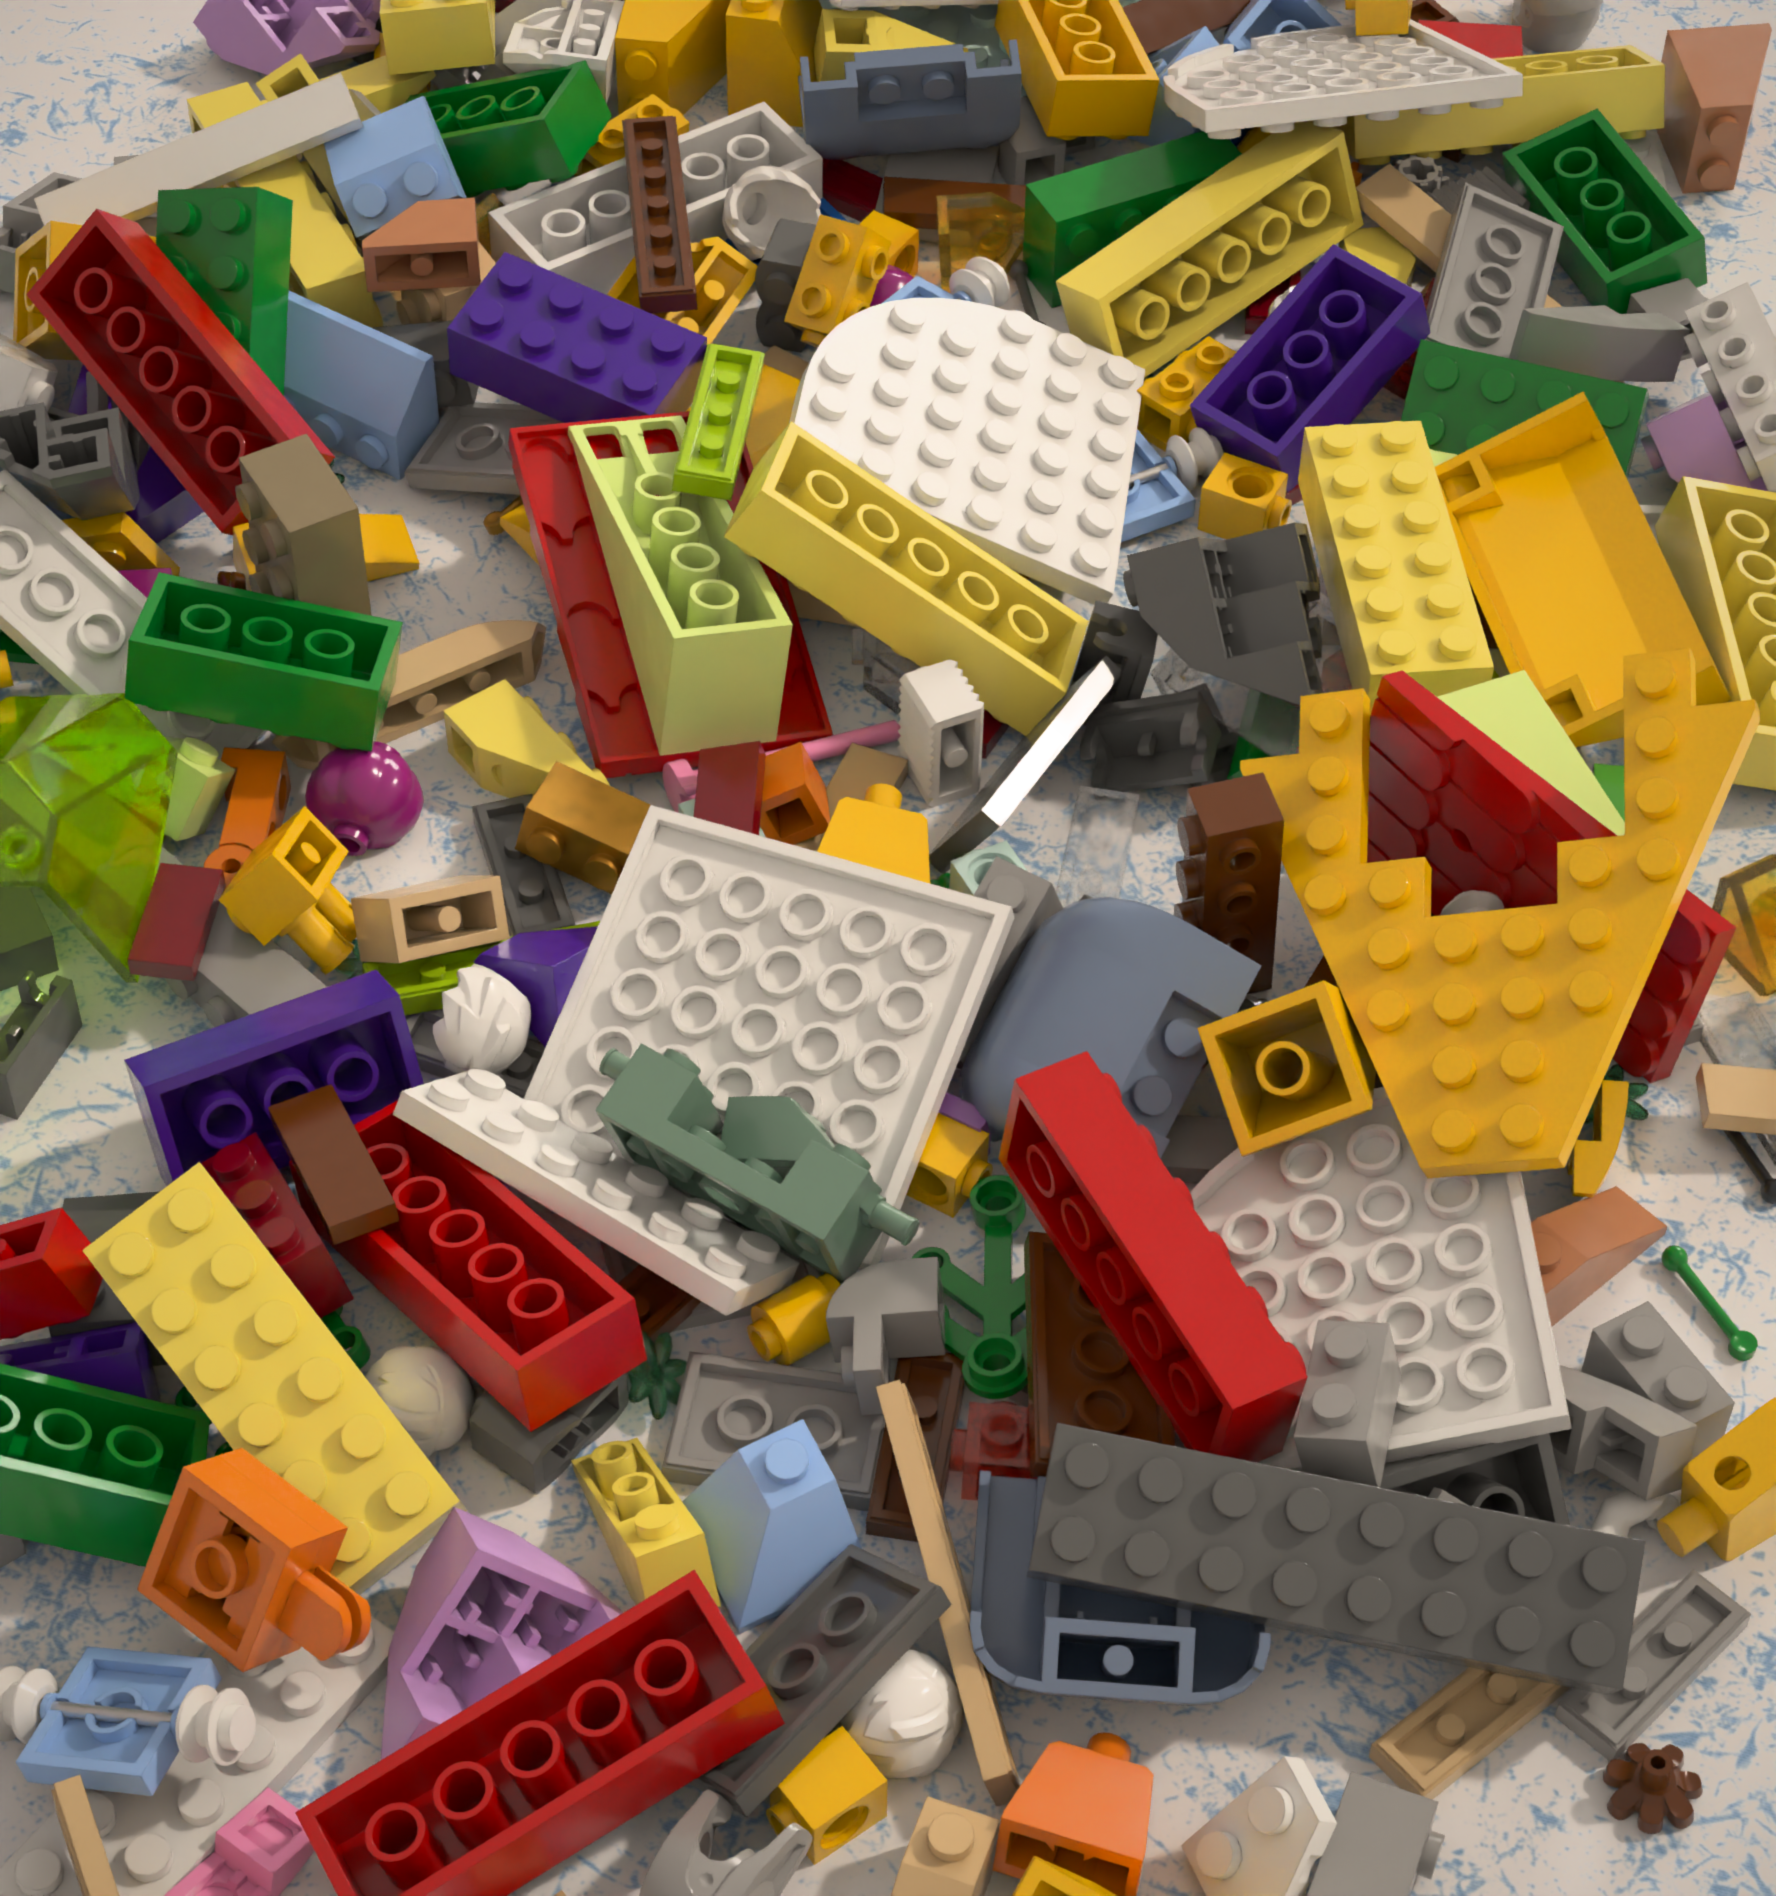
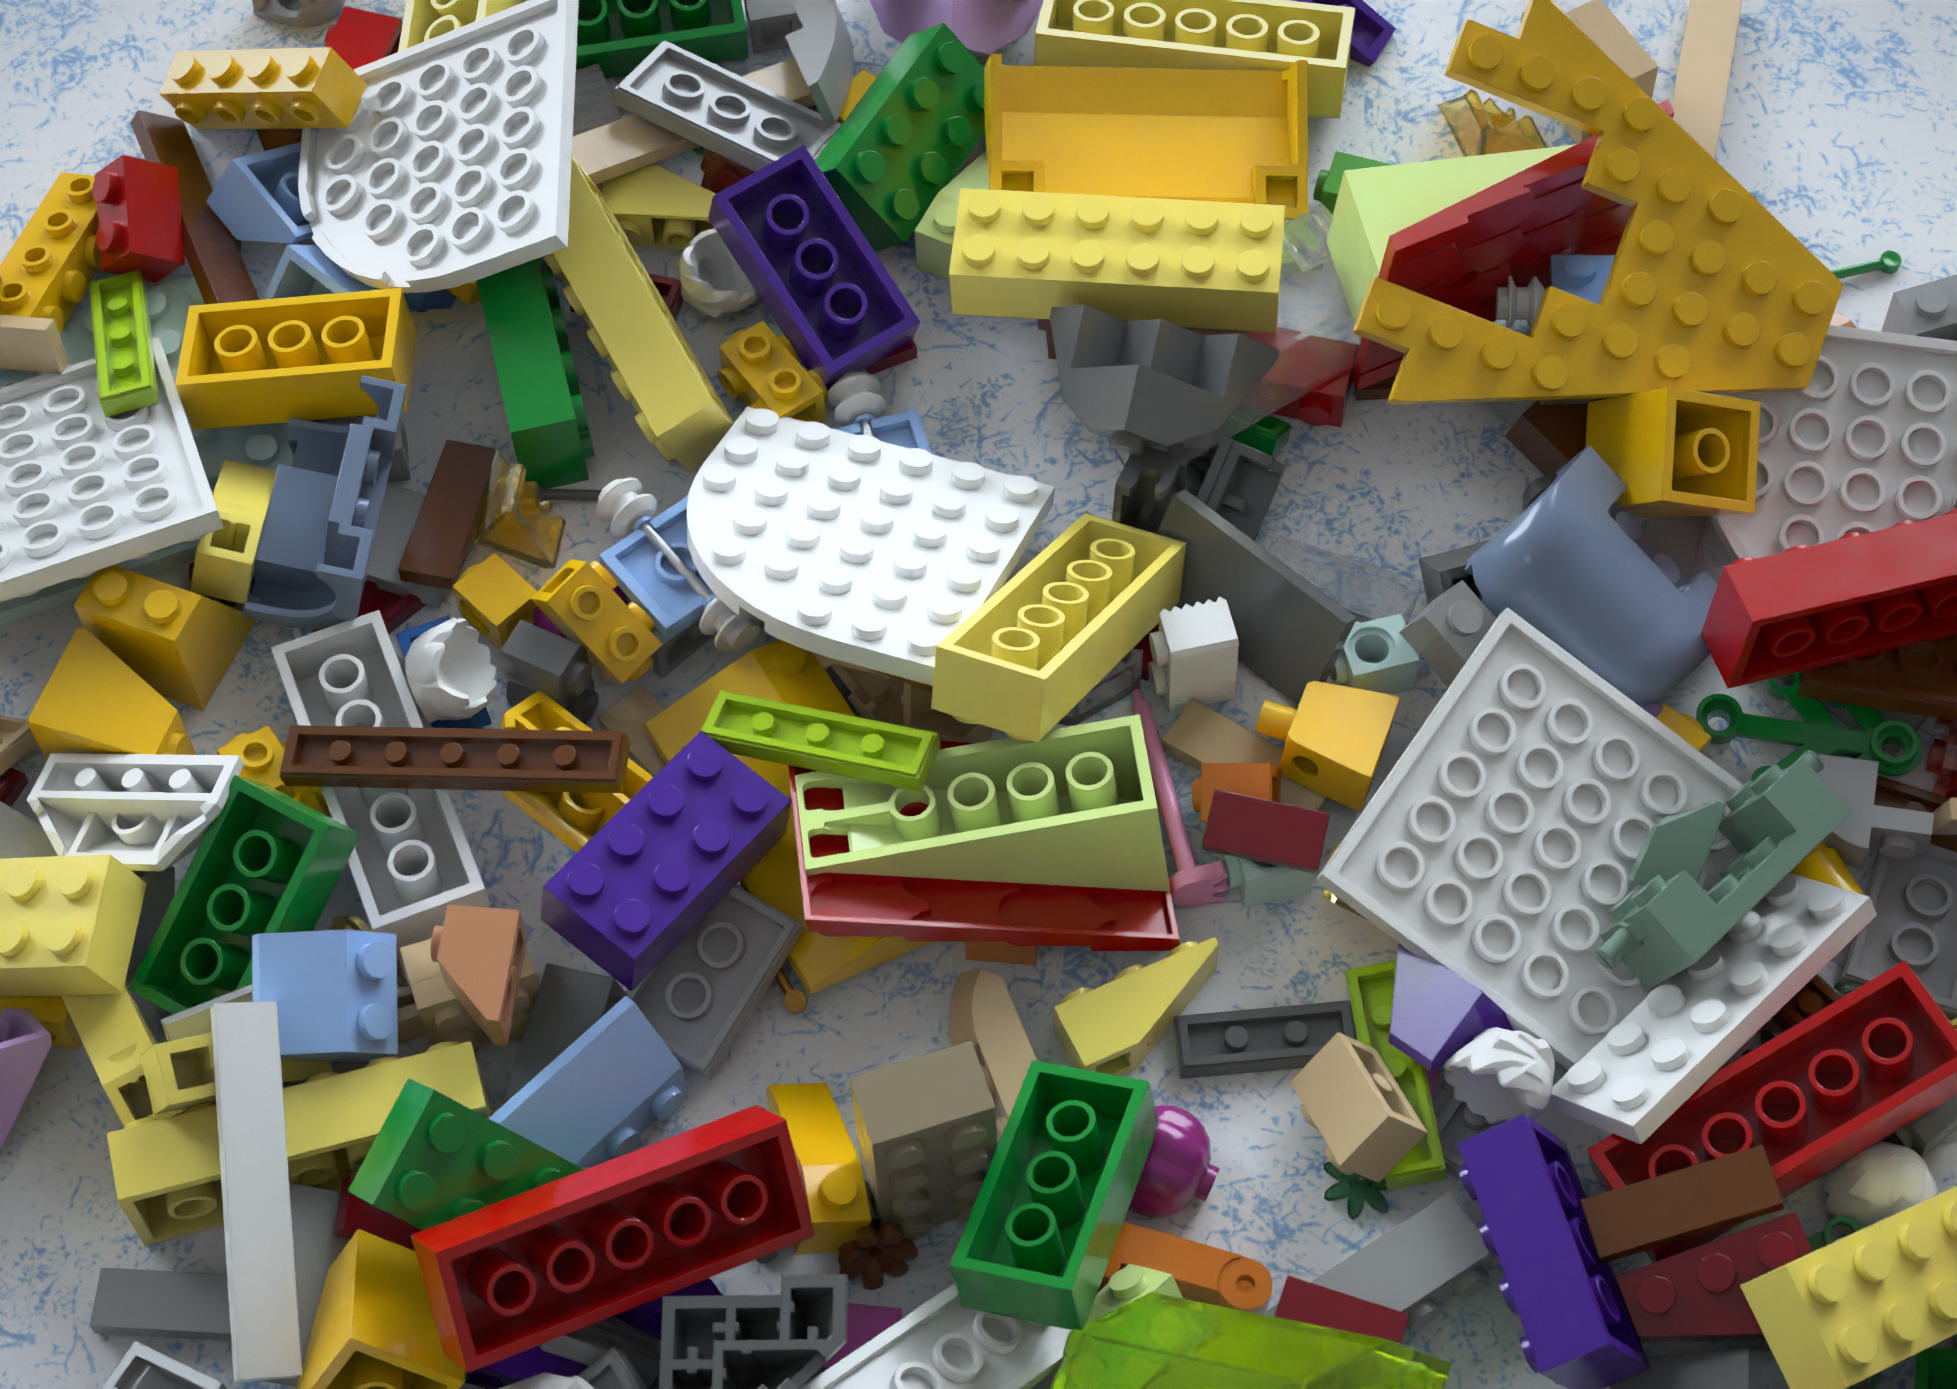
camera: 75 degrees left, 10 degrees up
(290, 892) = (1311, 1220): yellow brick -> none
(581, 826) = (1255, 963): pearl gold brick -> none
(1233, 867) = (1480, 454): reddish brown brick -> none
(1242, 498) = (912, 388): yellow brick -> none

